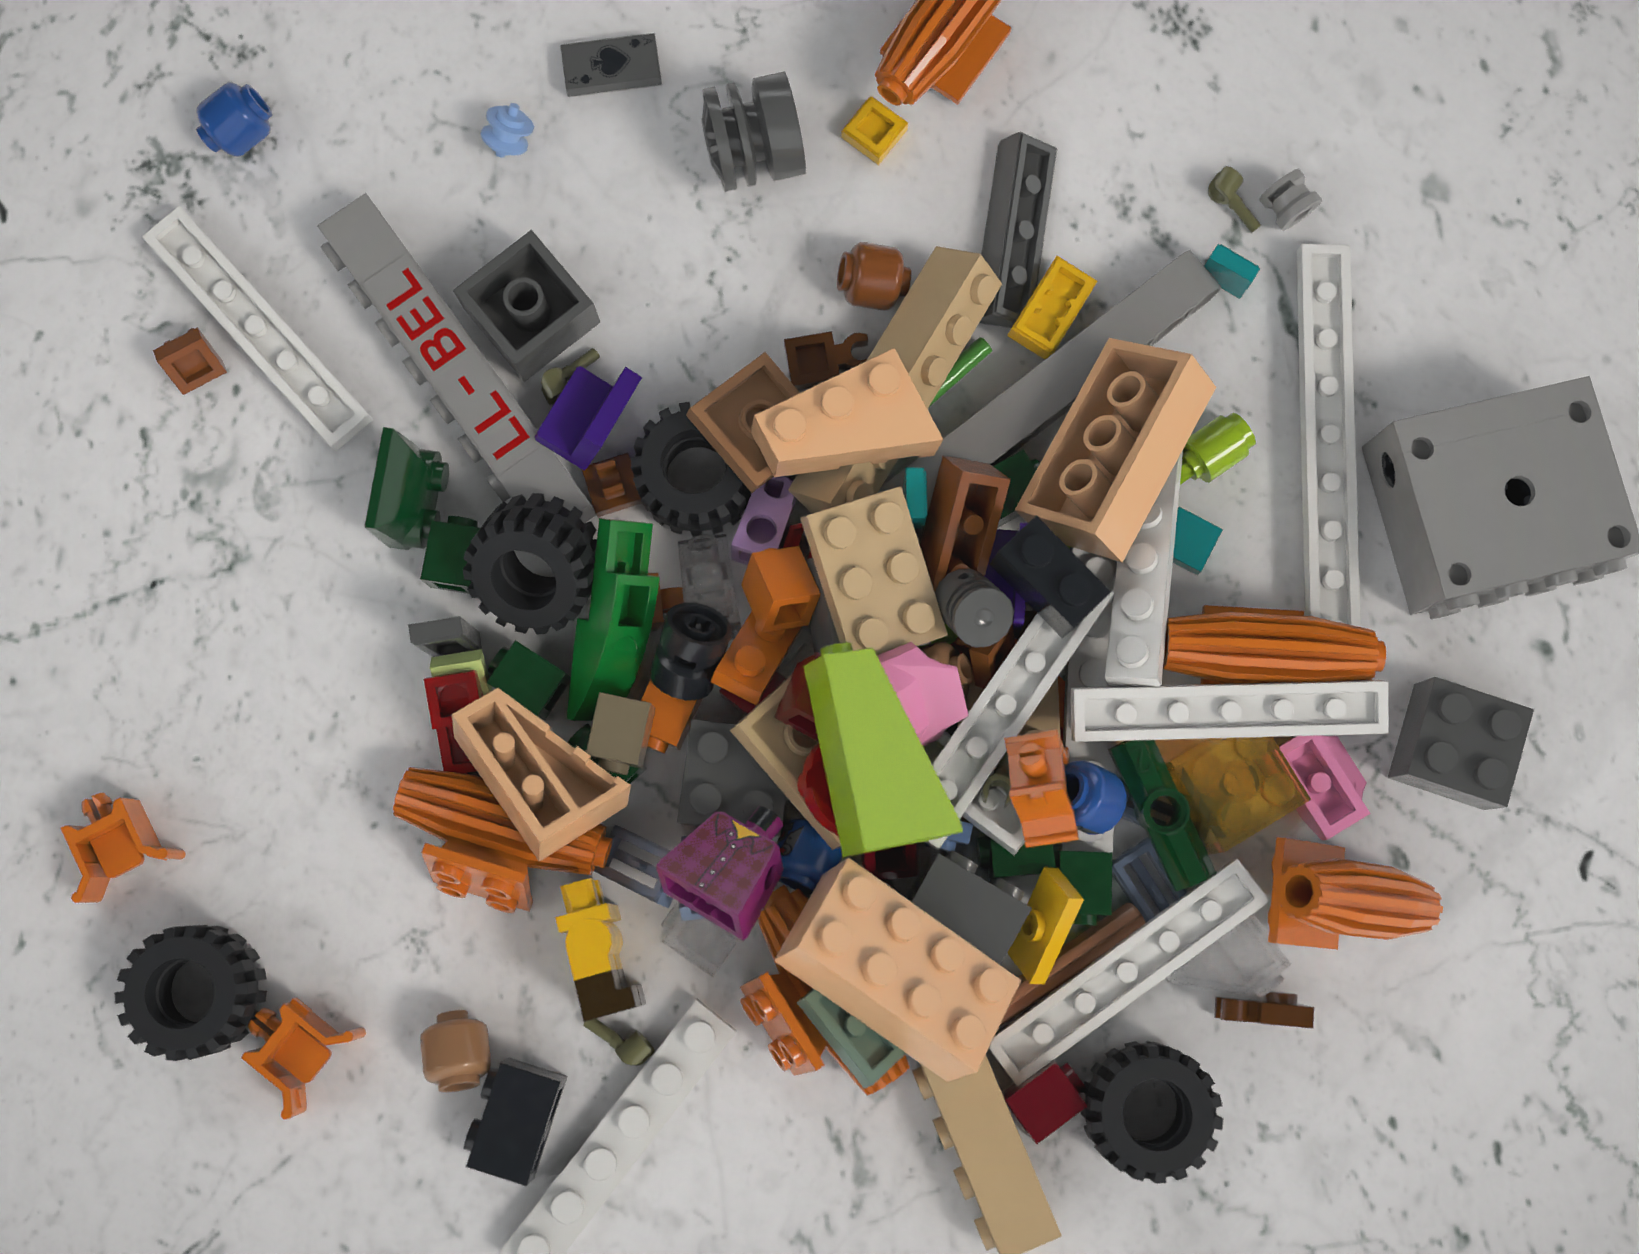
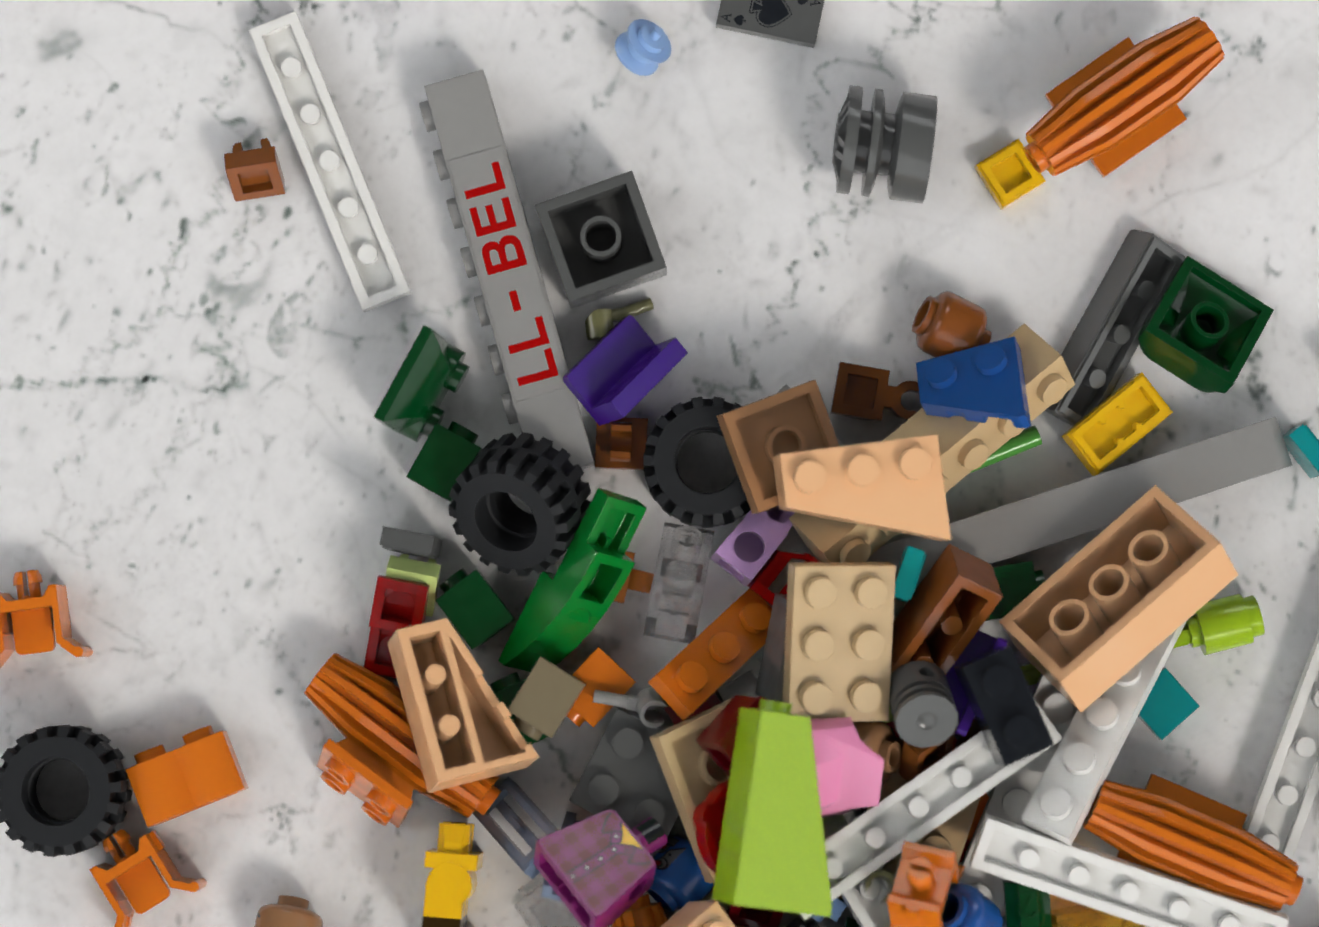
camera: 25 degrees right, 5 degrees up
(309, 936) = (185, 777): none -> orange brick
(690, 650) = (639, 644): black wheel -> none
(707, 708) = (638, 703): none -> light grey hand
(780, 589) = (746, 615): orange brick -> none
(913, 307) = (976, 384): none -> blue wing
(1096, 199) = (1203, 328): none -> dark green slope

